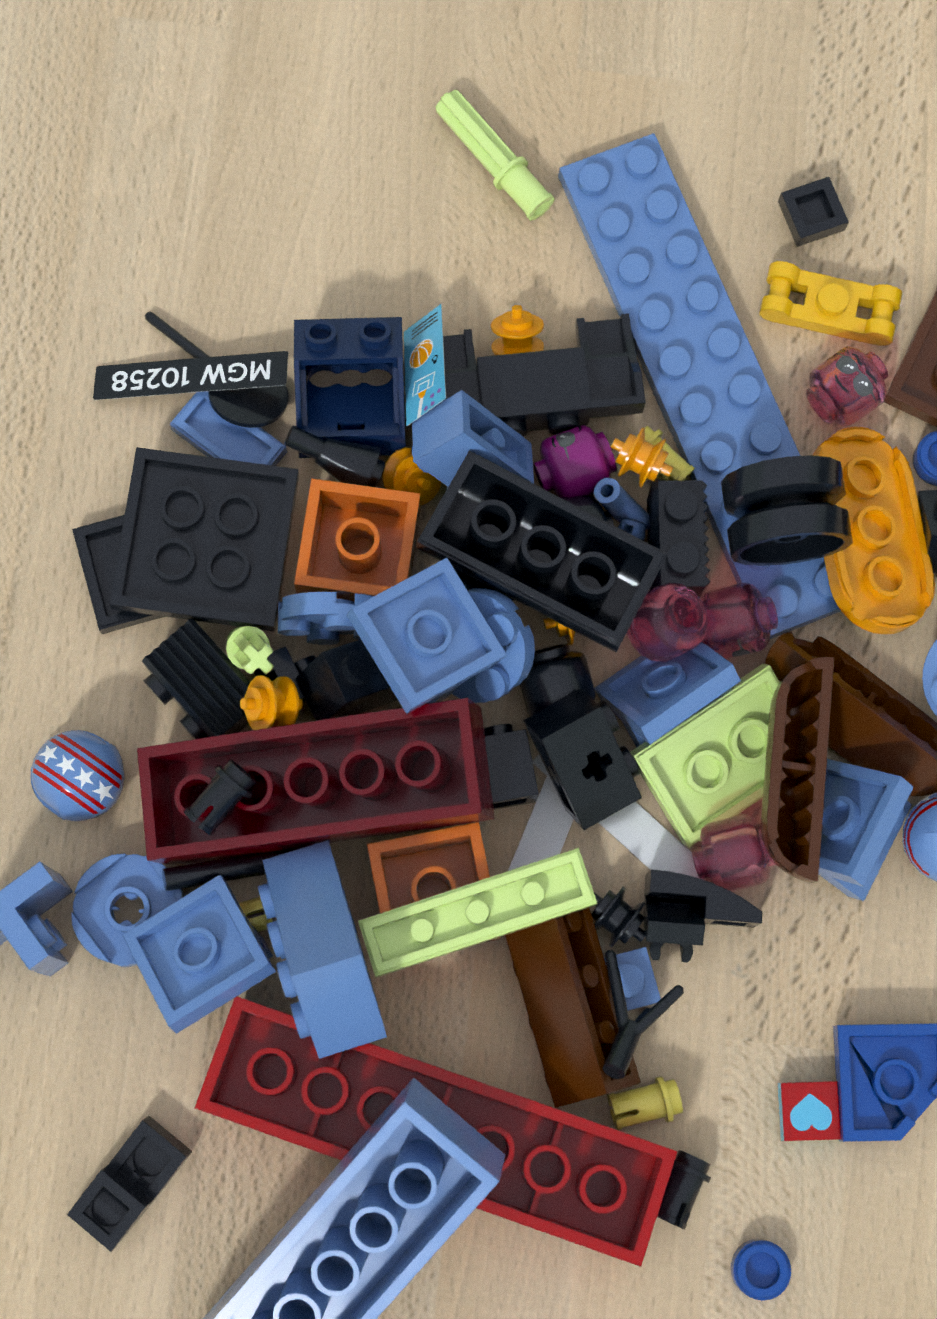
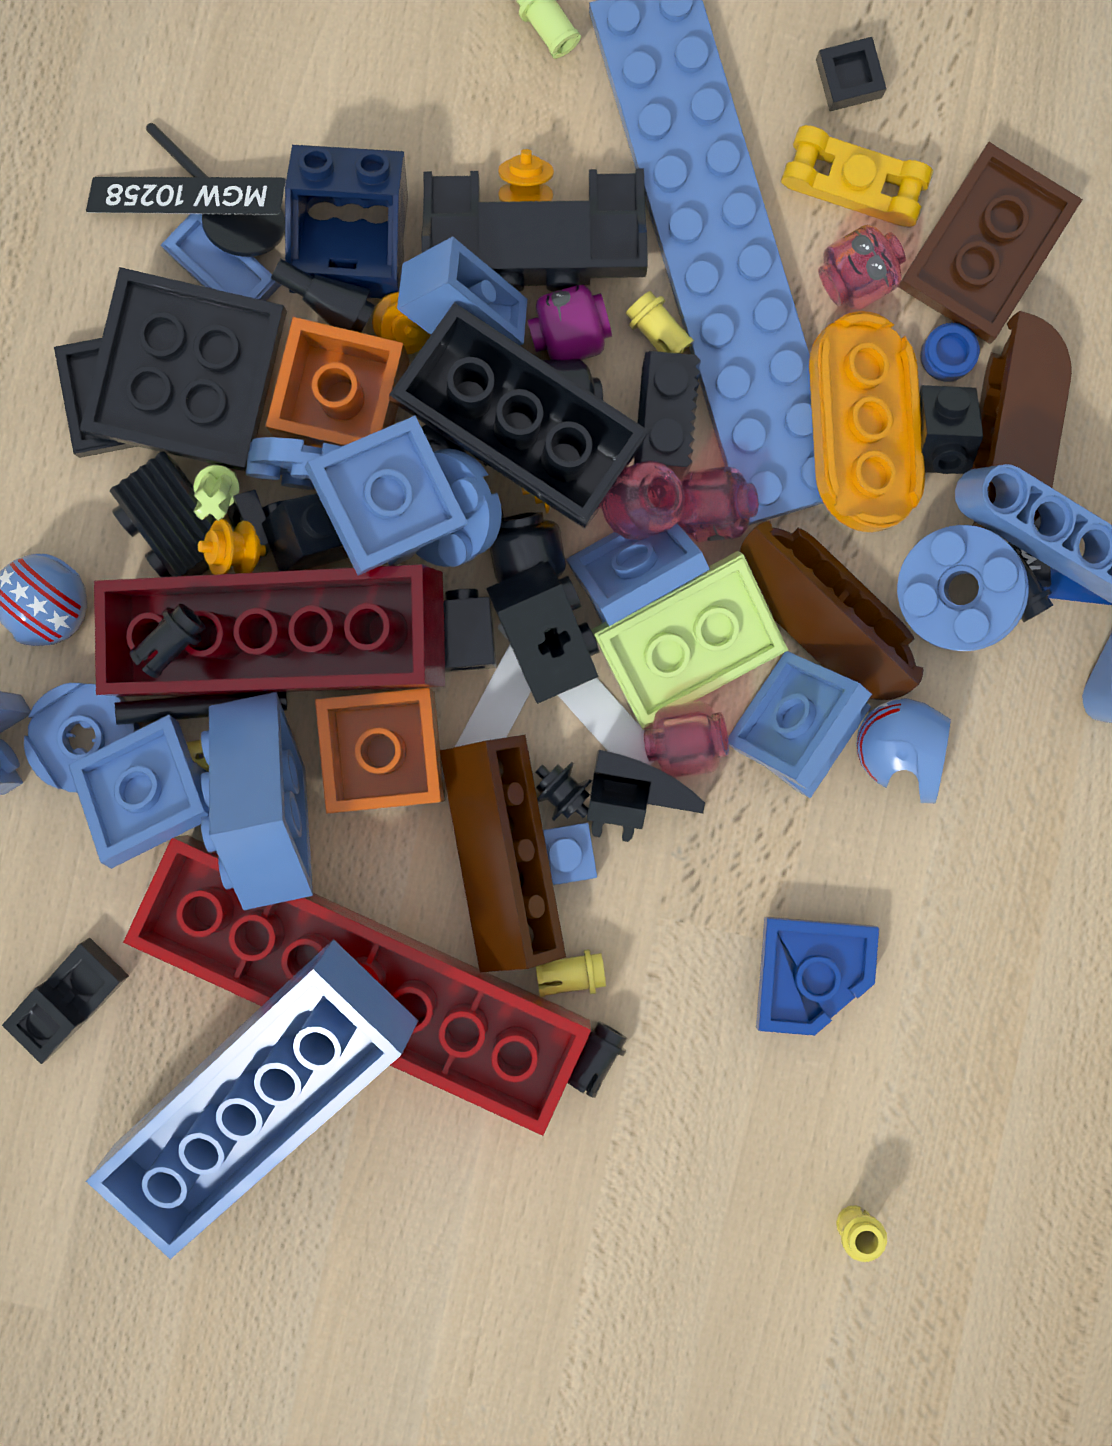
camera: 10 degrees right, 10 degrees up
(424, 365) = (422, 205): medium azure sticker -> none
(477, 912) = (417, 779): yellowish green tile -> none
(622, 507) = (616, 376): medium blue arm -> none
(629, 1030) = (559, 908): black plant -> none
(641, 457) = (637, 324): light orange wheel -> none
(760, 1269) = (664, 1140): blue tile -> none
(786, 510) = (778, 395): black wheel -> none
(797, 768) = (756, 663): reddish brown brick -> none
(809, 1111) = (730, 996): red tile -> none

